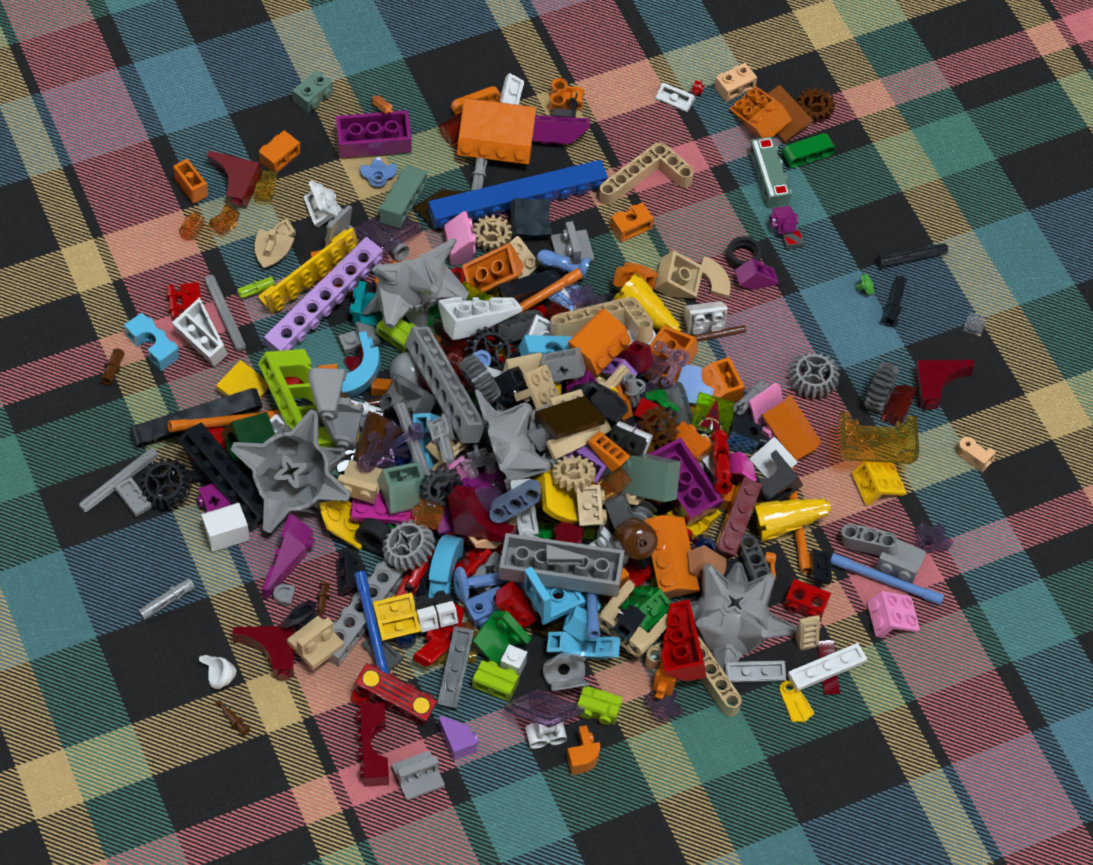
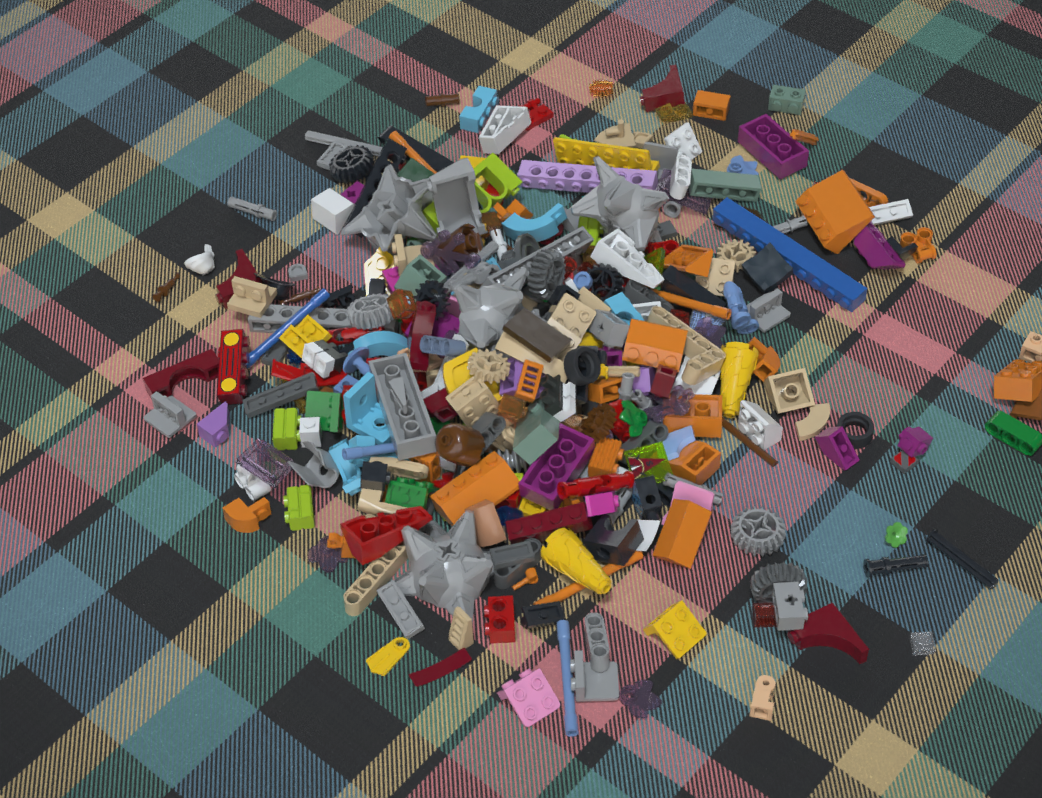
camera: 70 degrees right, 10 degrees down
(190, 181) = (640, 68): orange brick -> none
(225, 313) = (536, 138): light grey axle -> none
(226, 220) = (620, 103): clear orange bracket -> none
(295, 544) = (333, 254): magenta wedge -> none
(381, 222) = (680, 177): none -> white beam
(460, 229) = (711, 234): bright pink slope -> none
(625, 228) = (818, 332): orange brick -> none
(656, 157) = (883, 322): tan beam -> none
(675, 97) = (990, 319): white slope -> none
(697, 88) = (1012, 328): red plate -> none
(753, 559) = (512, 554): none -> dark grey tile
(770, 172) = (963, 413): sand green brick -> none
(827, 667) = (436, 663): white plate -> none
(878, 444) = (707, 600): clear yellow windscreen -> none
(912, 389) = (788, 606): none -> light grey brick

